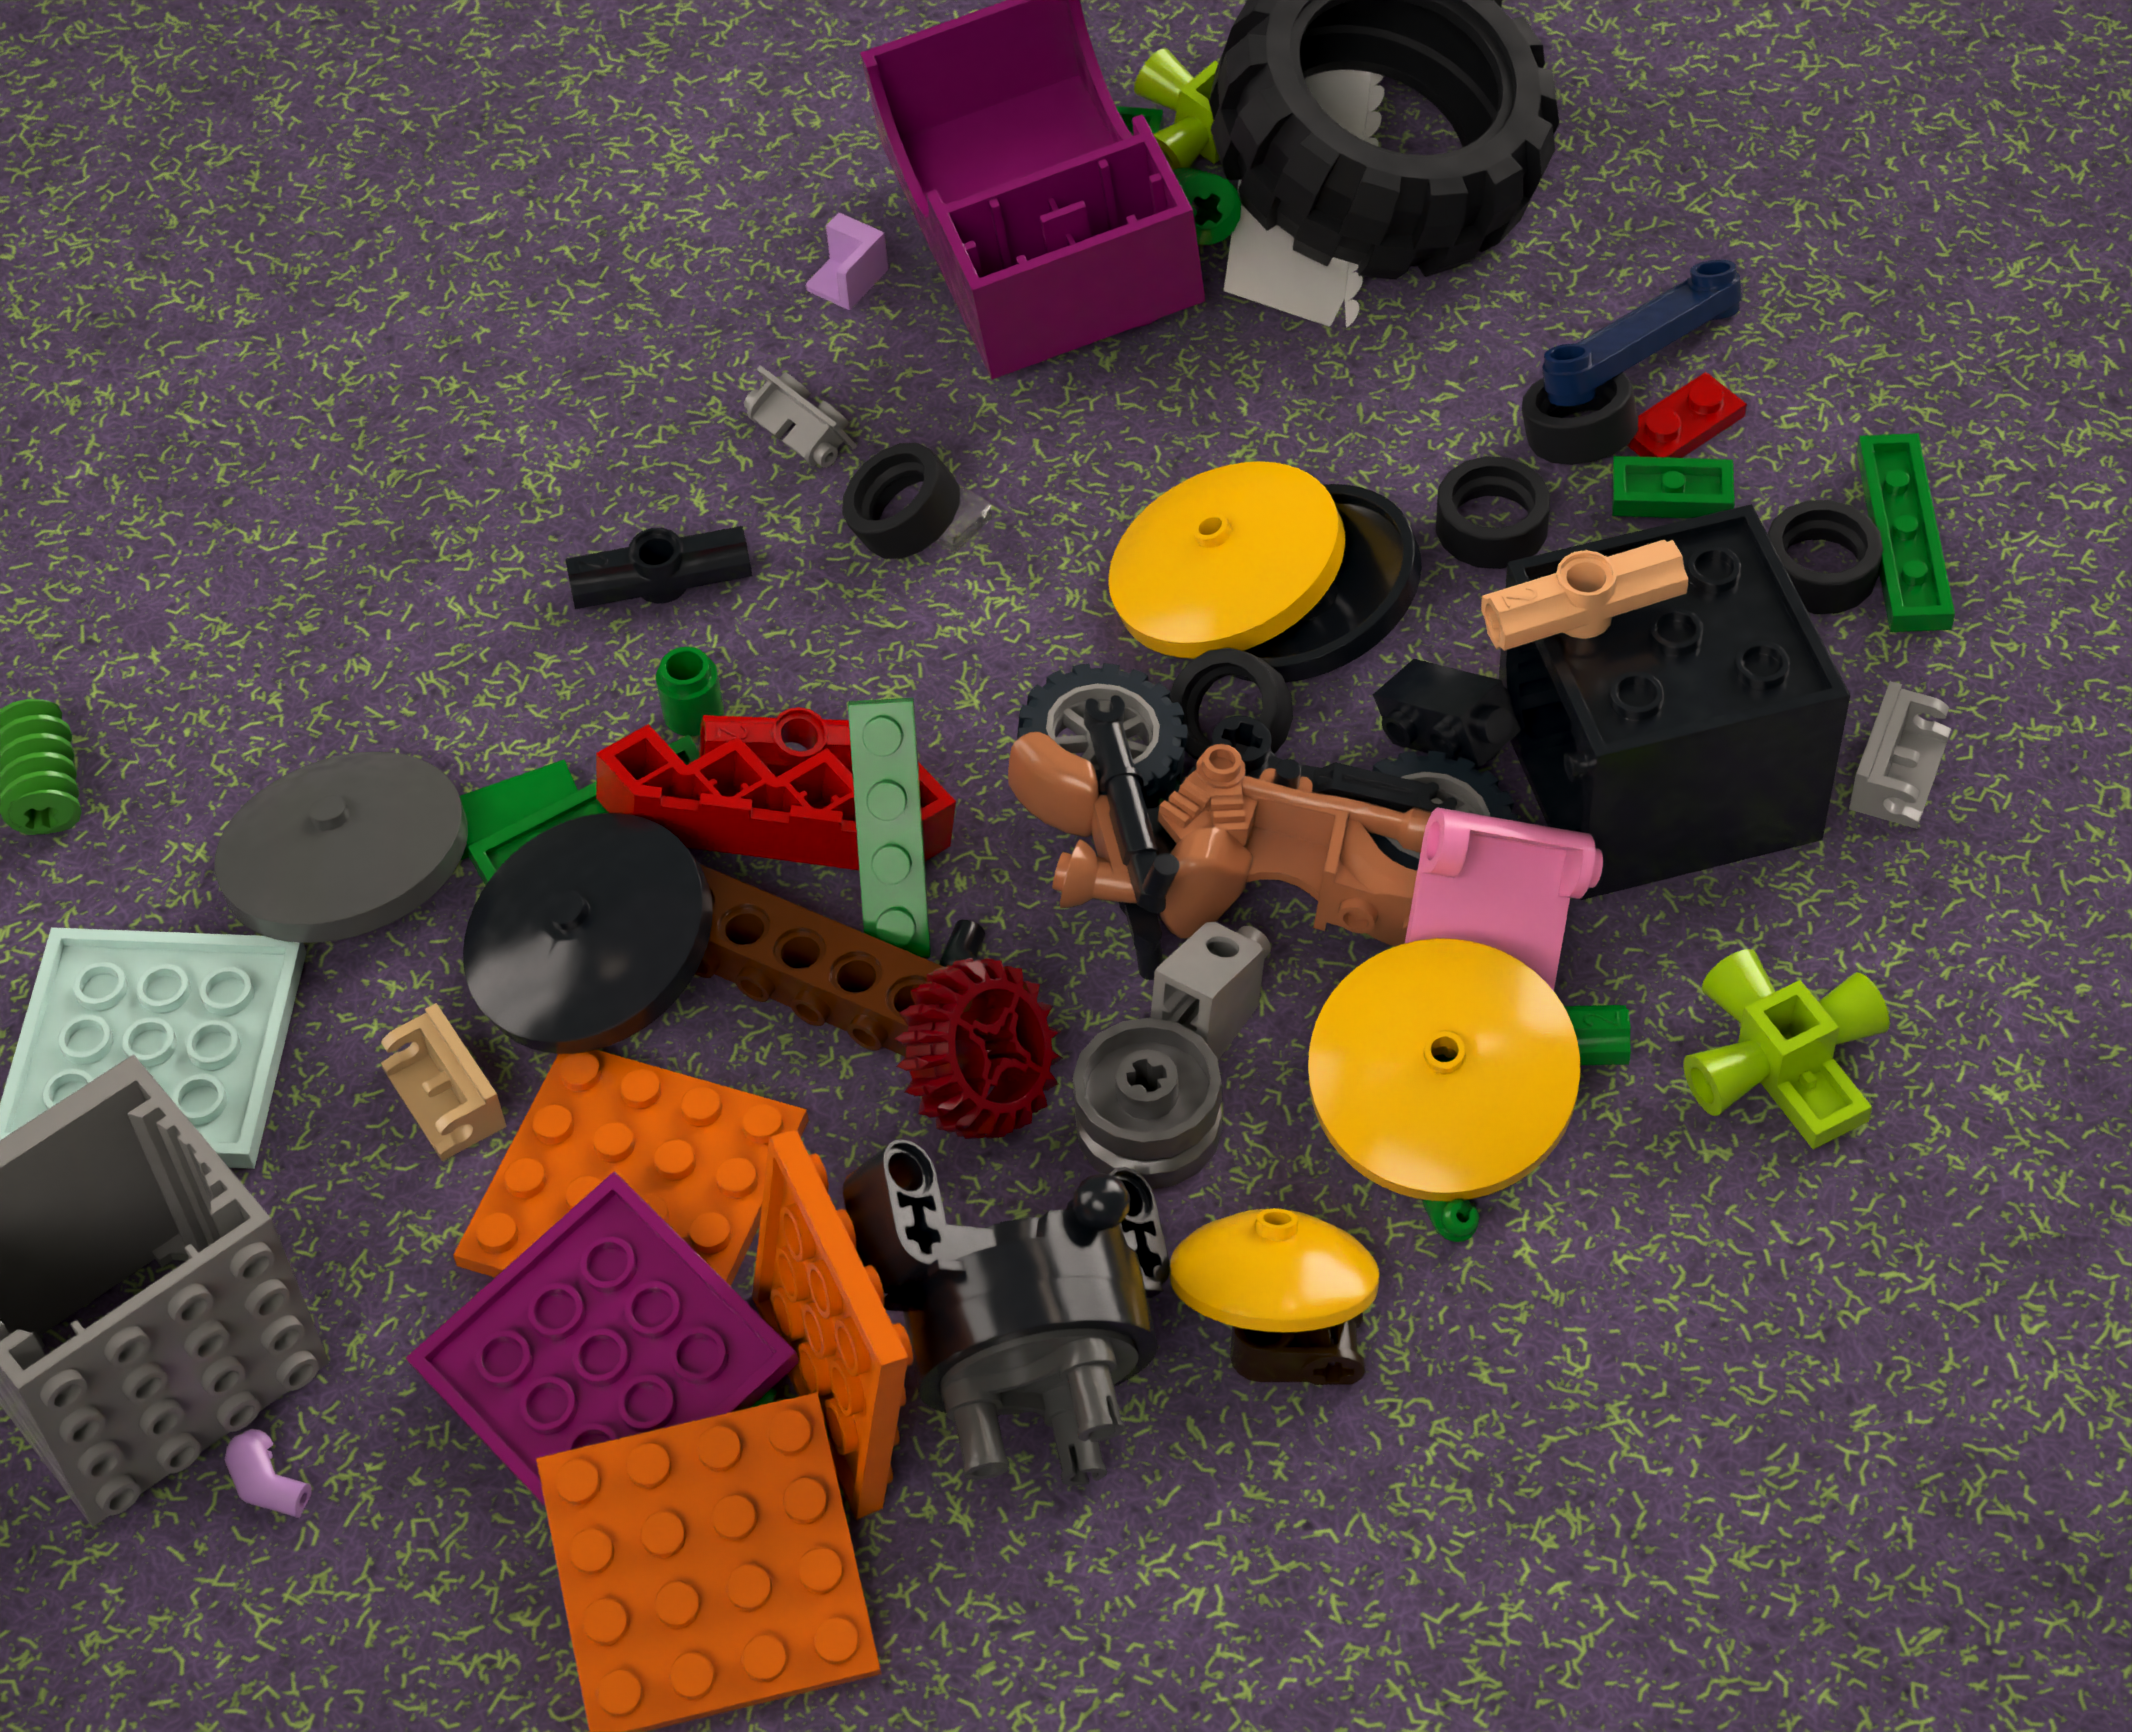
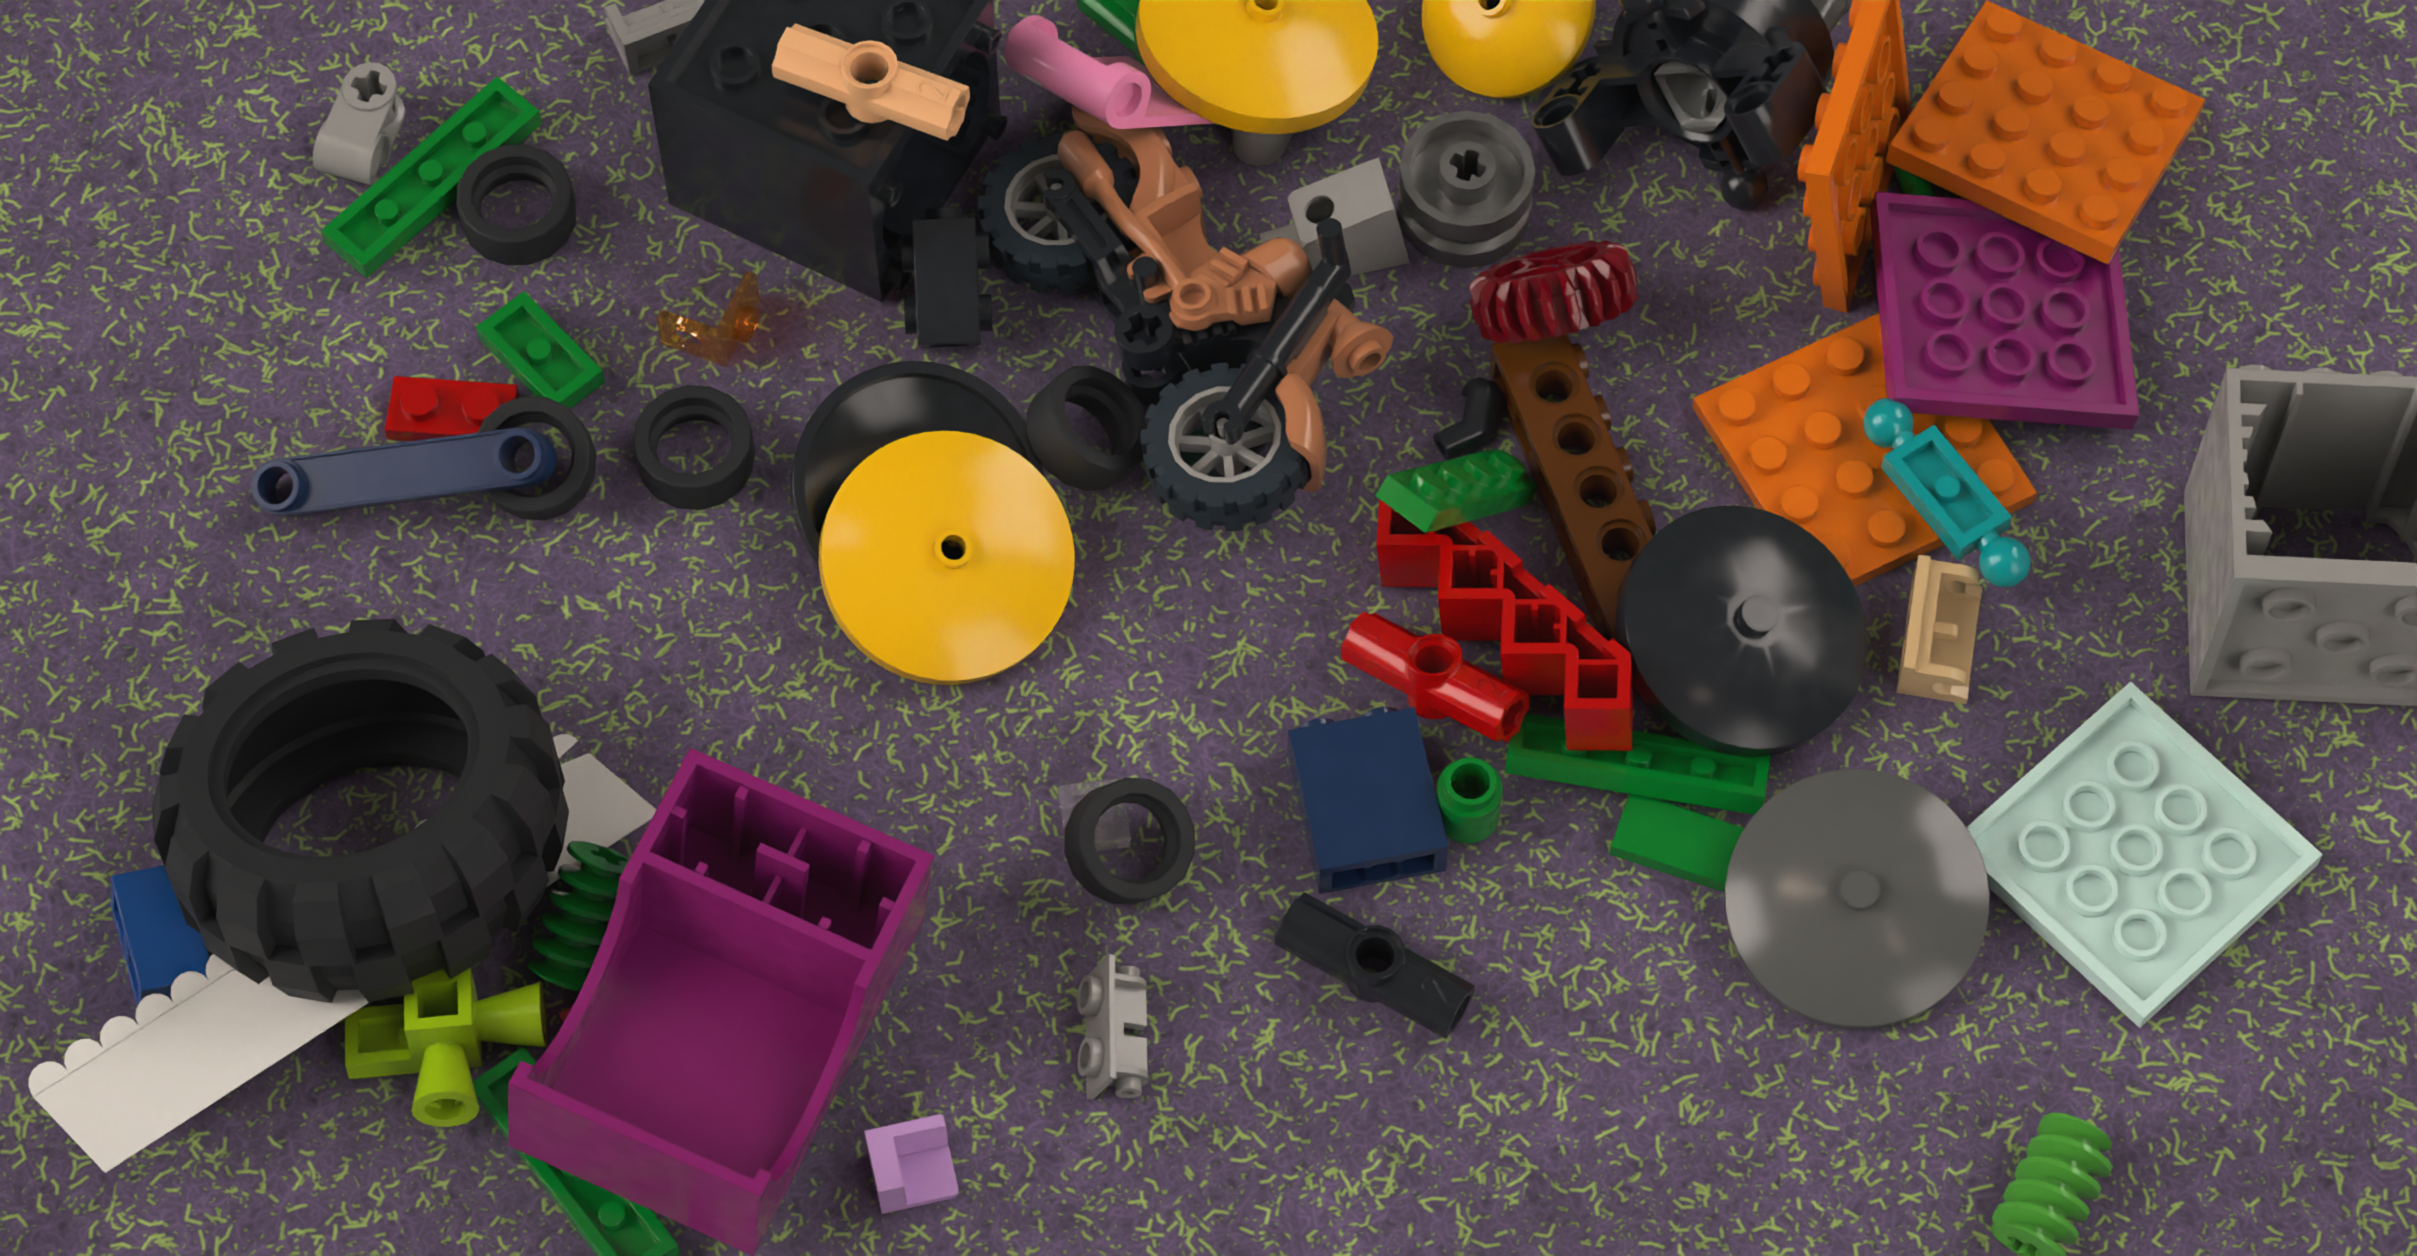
camera: 140 degrees left, 10 degrees up
(510, 1156) = (1946, 493): none -> teal plate
(774, 646) = (1367, 799): none -> dark blue brick
(1993, 518) = (360, 125): none -> light grey piece

